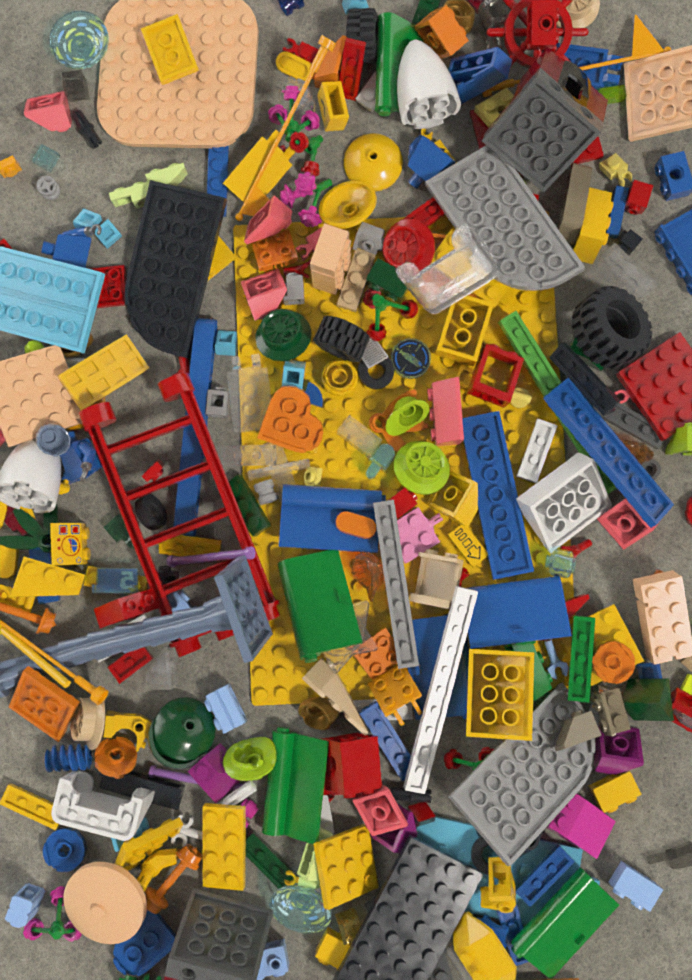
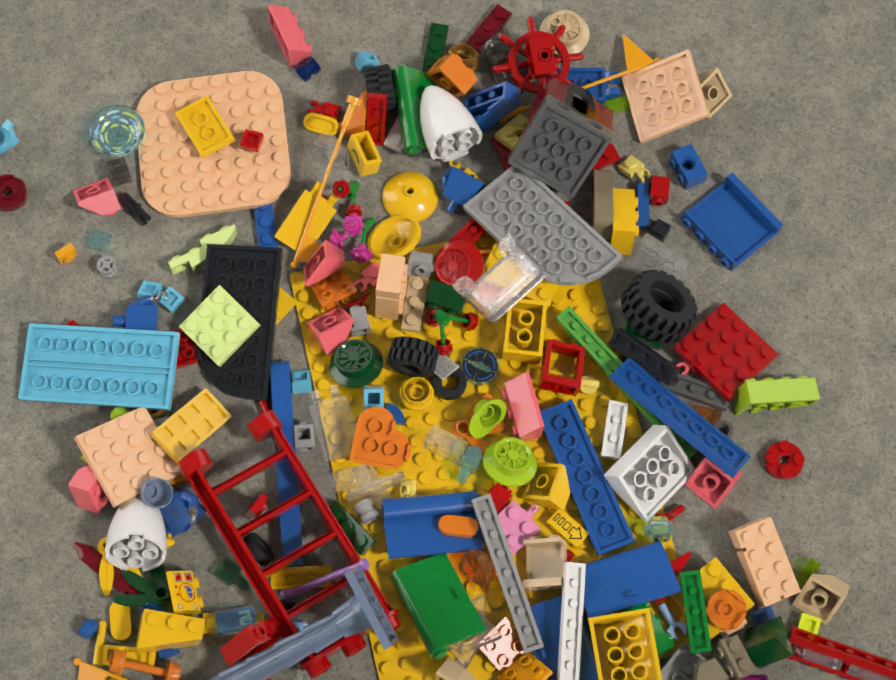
camera: 20 degrees left, 15 degrees down
(149, 271) = (219, 325): none -> yellowish green plate
(215, 73) = (251, 140): none -> red plate
(279, 114) = (315, 168): dark pink plant -> none

